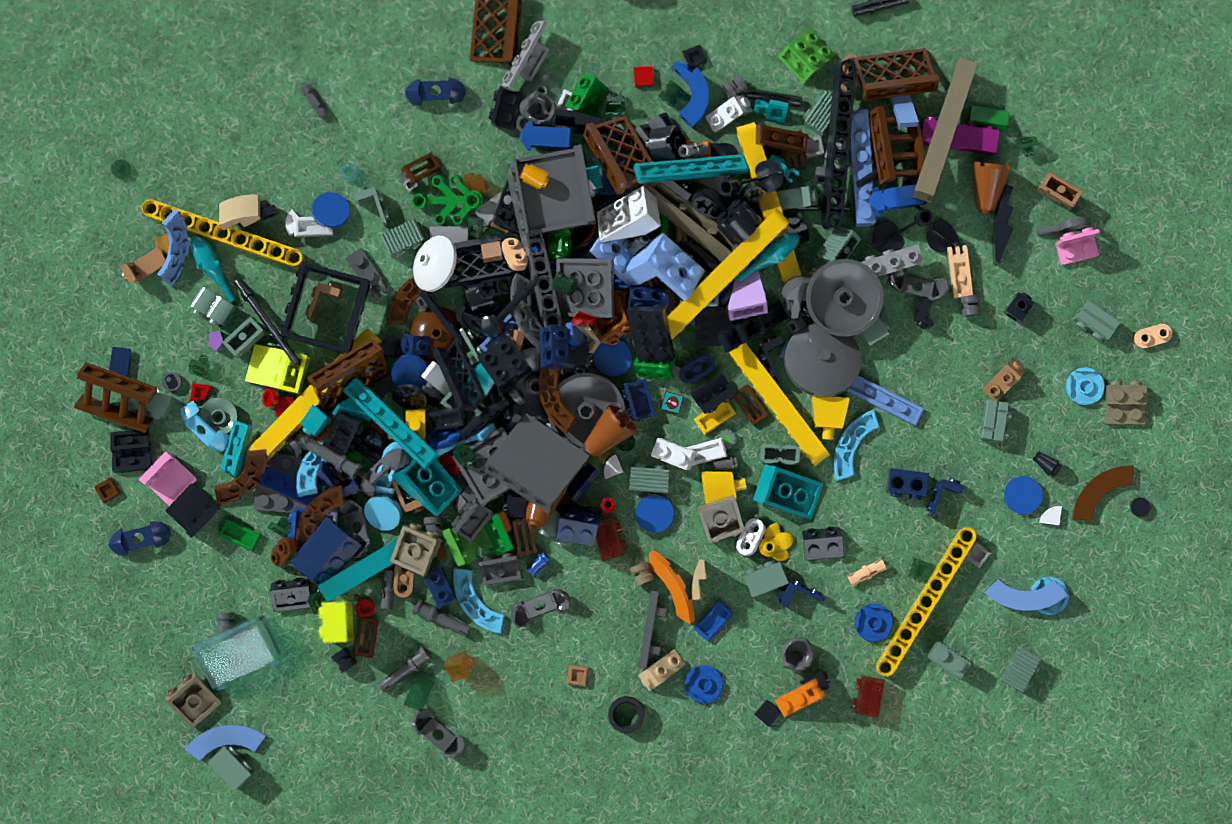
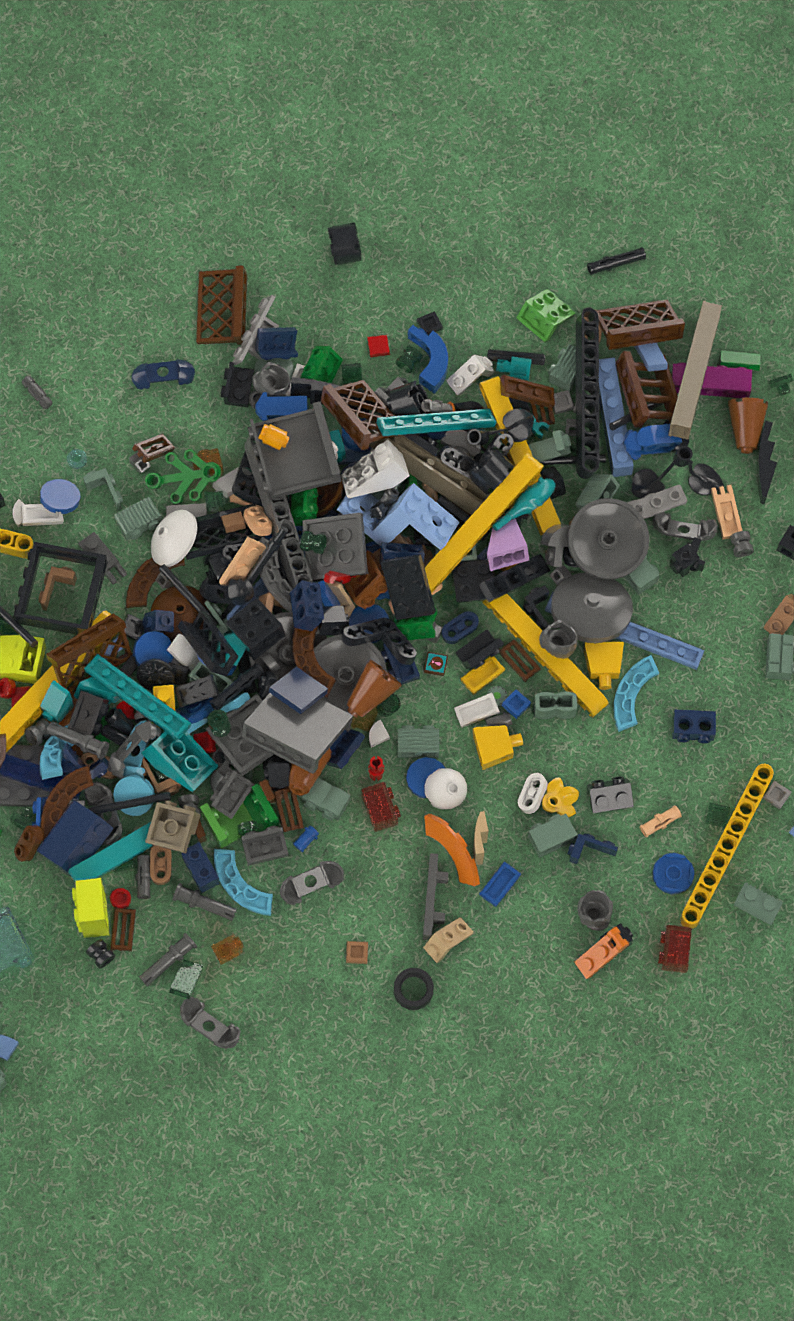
camera: 10 degrees left, 15 degrees down
(290, 594) = (38, 890): black bracket -> none
(315, 600) = (65, 894): clear green tile -> none
(378, 521) = (130, 803): none -> black bar
(497, 298) = (243, 561): none -> light nougat hinge
(540, 429) = (298, 690): none -> tile
(545, 70) = (276, 343): none -> dark blue bracket
(578, 524) = (346, 791): dark blue bracket -> none
(626, 375) = (385, 630): none -> black beam
(629, 255) = (378, 510): none -> black plate
(641, 573) = (418, 839): dark tan wheel -> none
(671, 527) = (446, 788): none -> white cylinder
(674, 454) = (442, 712): white brick -> none
(697, 683) = (500, 956): blue tile -> none
(721, 519) = (498, 774): dark tan plate -> none
(735, 86) = (475, 347): dark grey wheel -> none
(743, 450) = (516, 704): none -> blue tile
(767, 713) = (567, 976): black tile -> none
(788, 396) = (559, 642): none -> dark grey hair
(788, 491) = (567, 743): teal slope -> none
(914, 319) = (683, 559): none -> black bracket
(952, 485) = (741, 725): dark blue bracket -> none

